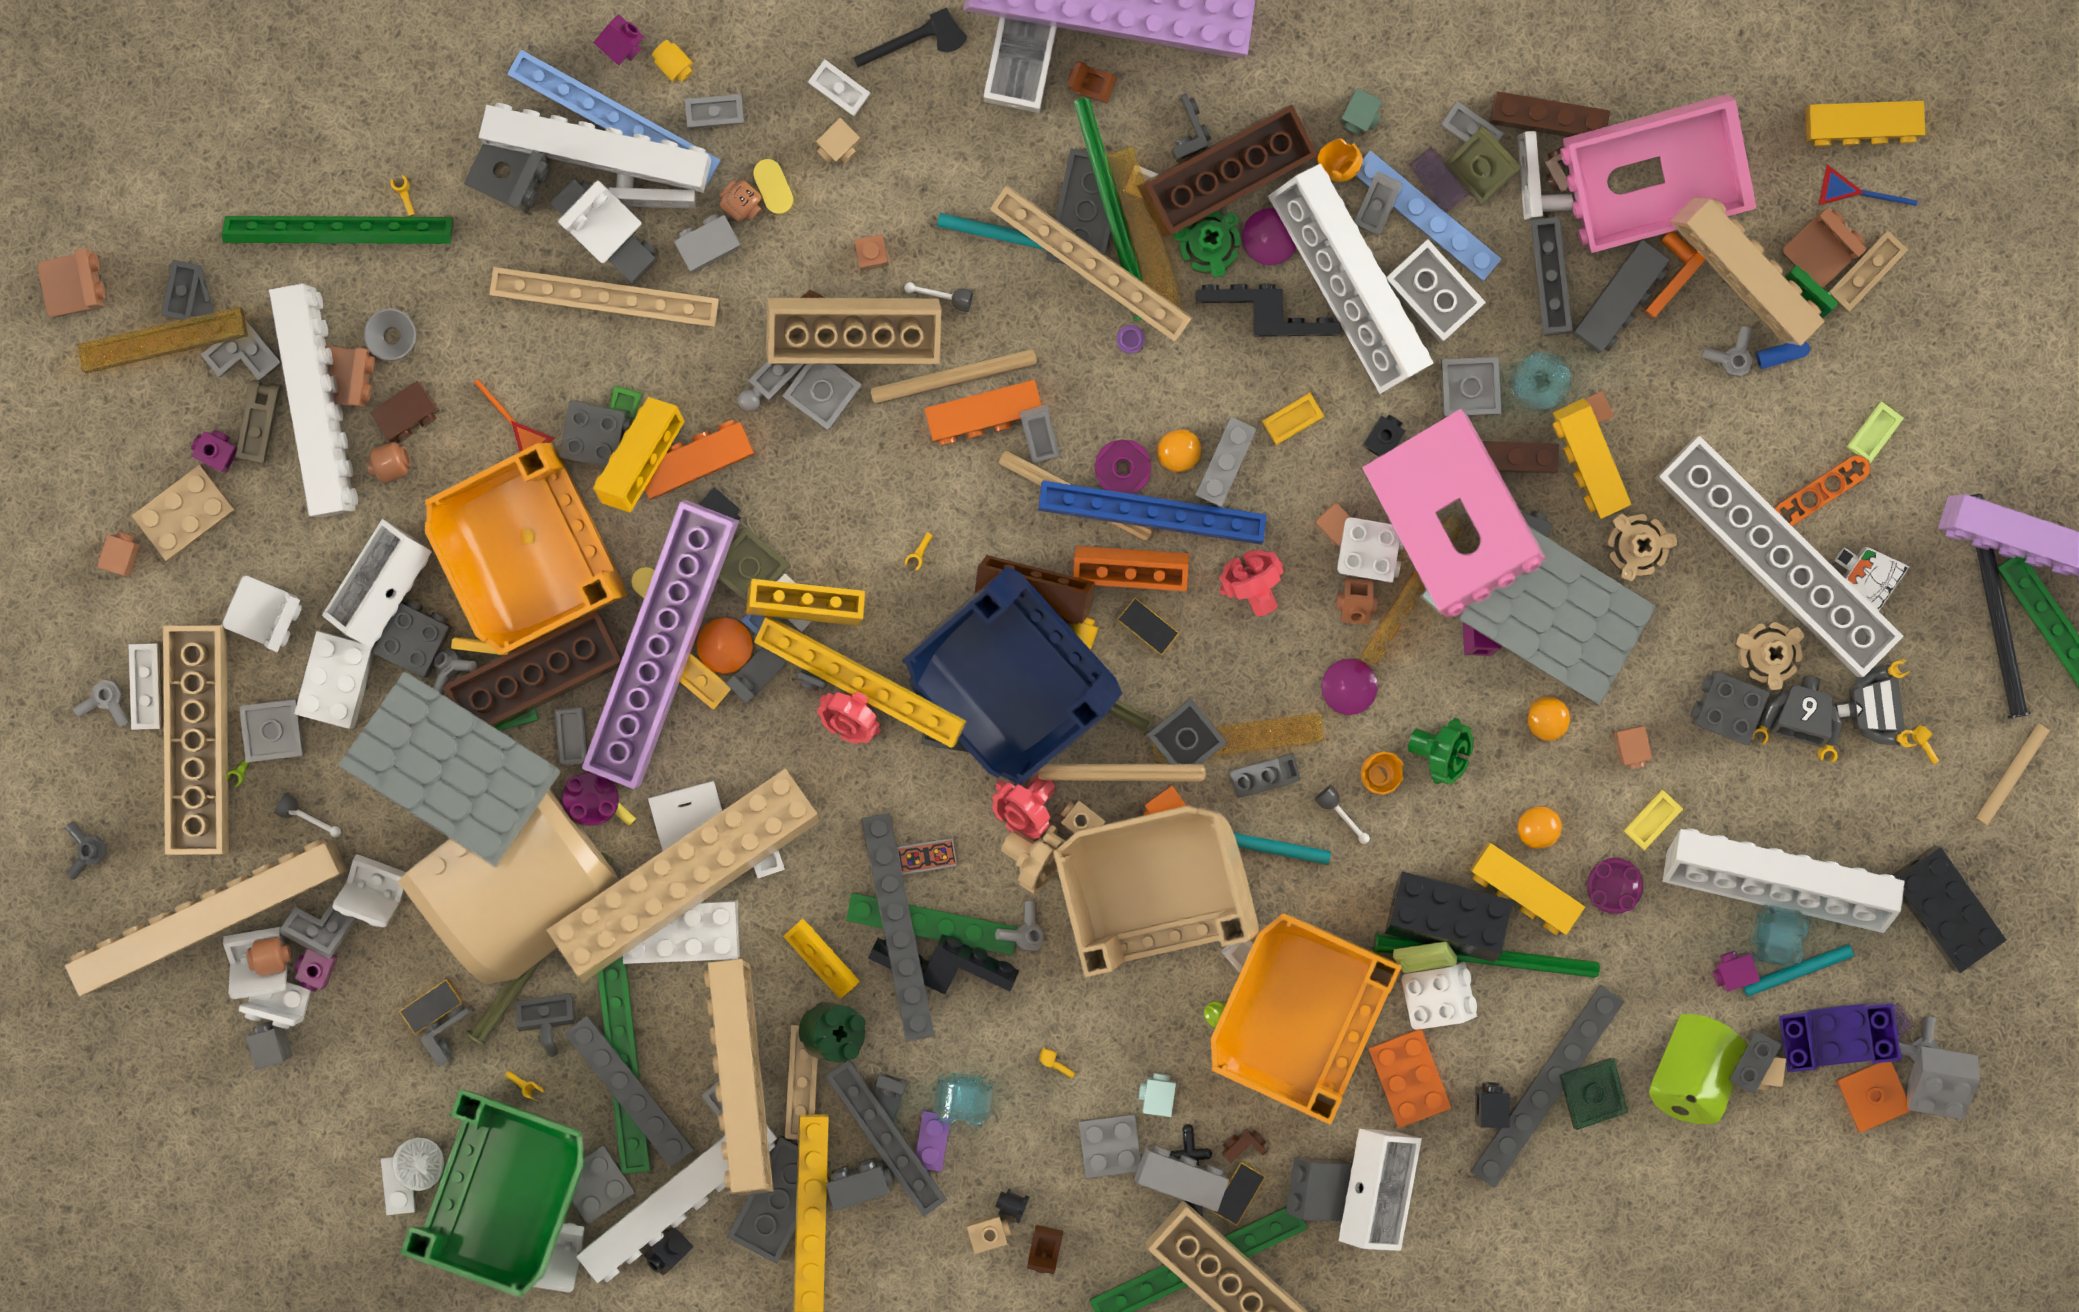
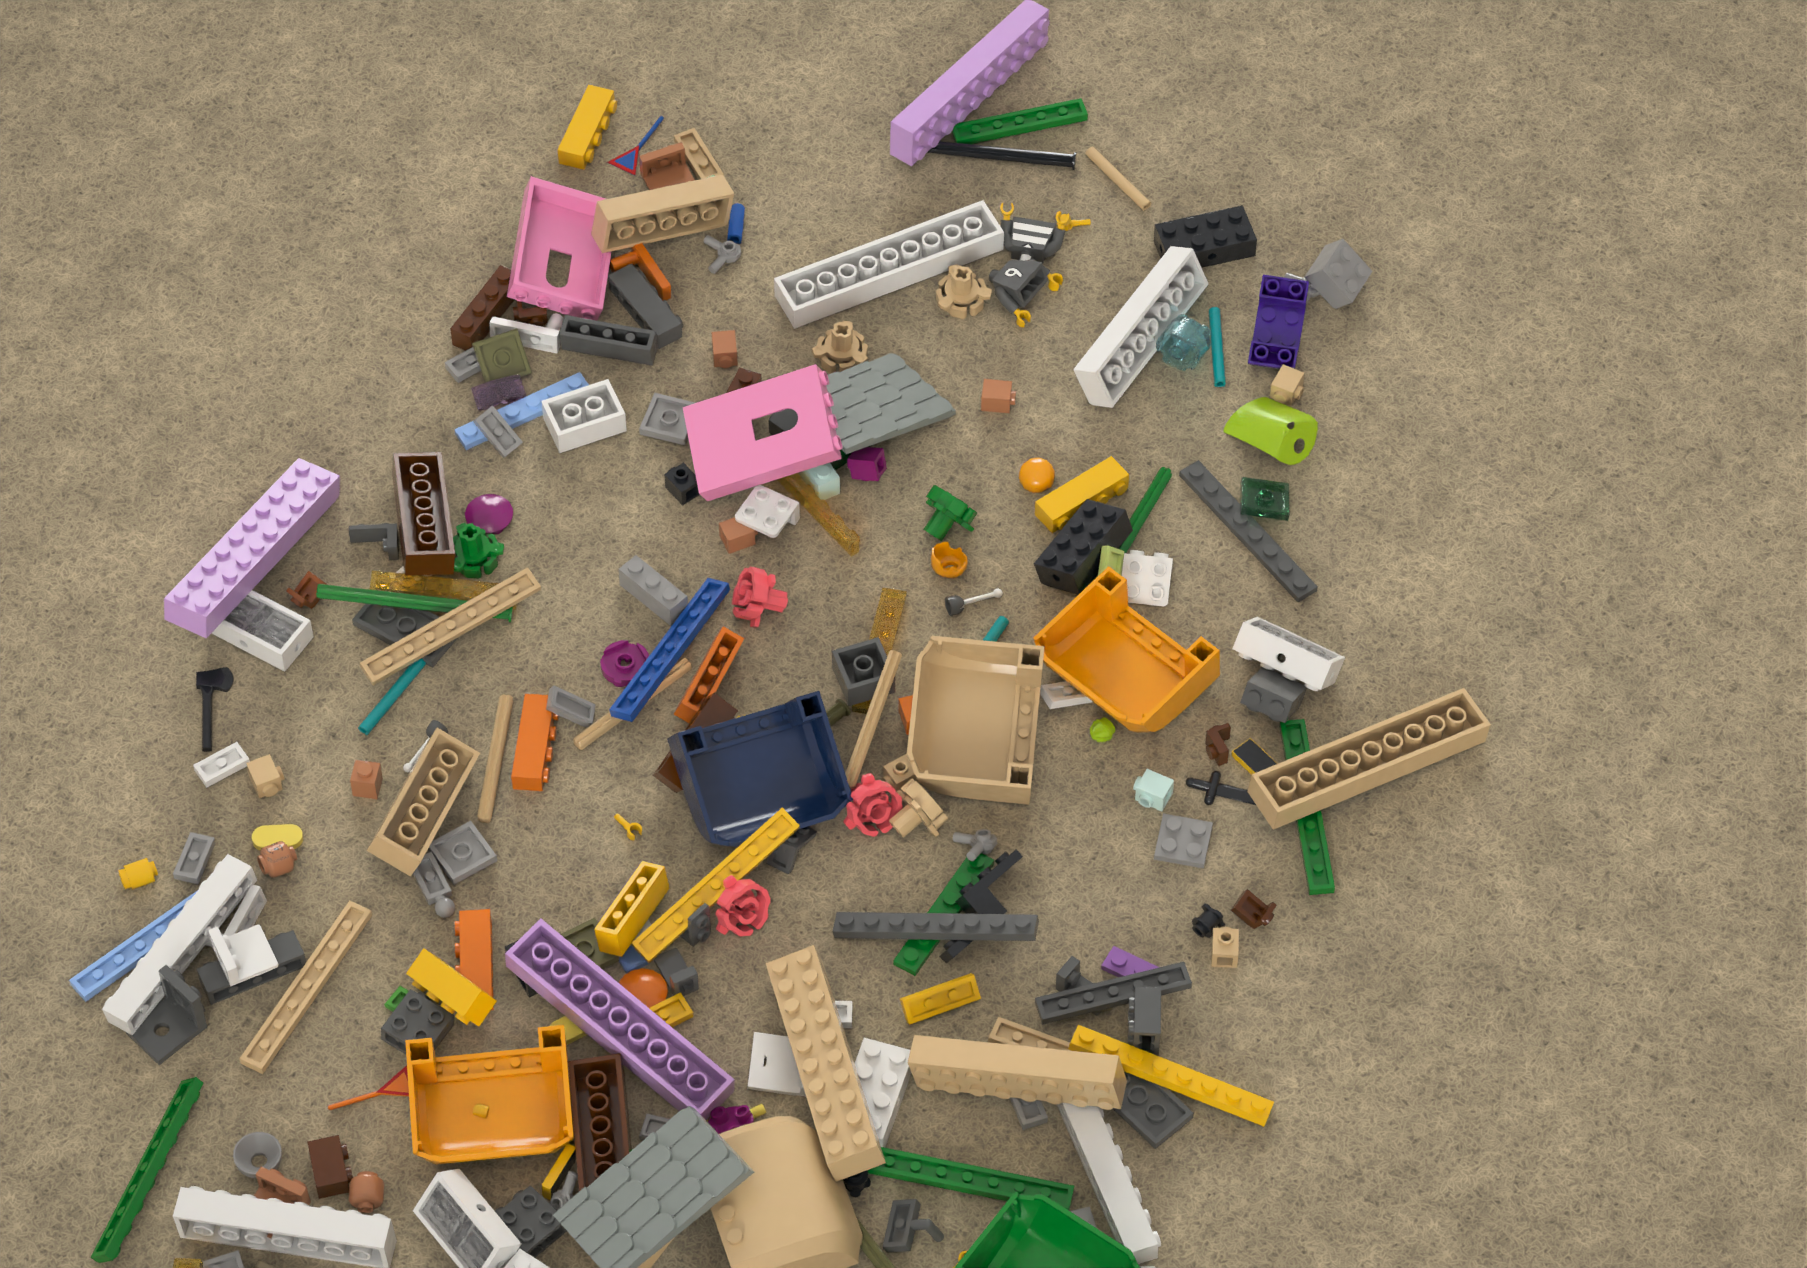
camera: 70 degrees left, 35 degrees down
(403, 191) = (139, 1113): yellow hand -> none
(619, 40) = (100, 902): magenta brick -> none
(629, 1091) = (996, 1176): dark grey plate -> none
(668, 1251) = (1154, 1198): black bracket -> none
(707, 243) = (300, 894): light grey brick -> none
(832, 1032) = (1006, 1001): dark green brick -> none
(927, 856) = (885, 893): tile -> none
(963, 1098) = (1101, 924): clear light blue brick -> none
(1047, 1058) = (1092, 863): yellow hand -> none
(1130, 339) = (524, 628): medium lavender plate -> none
(1148, 626) = (761, 686): black tile -> none
(1179, 450) = (629, 623): light orange hair -> none
(1182, 1177) = (1226, 791): light grey brick -> none
(1265, 775) = (917, 637): dark grey bracket -> none
(1267, 311) = (547, 529): black bracket -> none
(1292, 418) = (640, 540): yellow tile -> none
(1340, 160) = (454, 446): light orange hair -> none
(1349, 686) = (870, 566): magenta dish -> none
(1350, 278) = (547, 461): white brick -> none
(1357, 607) = (804, 535): nougat brick -> none
(1361, 113) = (421, 424): sand green brick -> none
(1409, 1078) = (1210, 617): orange plate -> none
(1492, 1106) = (1248, 560): black brick -> none
(1548, 718) = (952, 445): light orange hair -> none
(1556, 376) = (686, 371): clear light blue brick -> none
(1591, 459) = (759, 350): yellow brick -> none
(1615, 885) = (1103, 440): magenta dish -> none
(1653, 819) = (1061, 403): light yellow tile -> none
(1729, 707) = (993, 328): dark grey brick -> none
(1735, 971) = (1201, 379): magenta brick -> none
(1755, 1061) = (1274, 380): dark grey bracket -> none
(1818, 487) = (852, 215): orange beam -> none
(1871, 573) = (926, 207): white torso -> none
(1873, 1095) = (1334, 328): orange plate -> none
(1875, 432) = (822, 188): yellowish green tile -> none

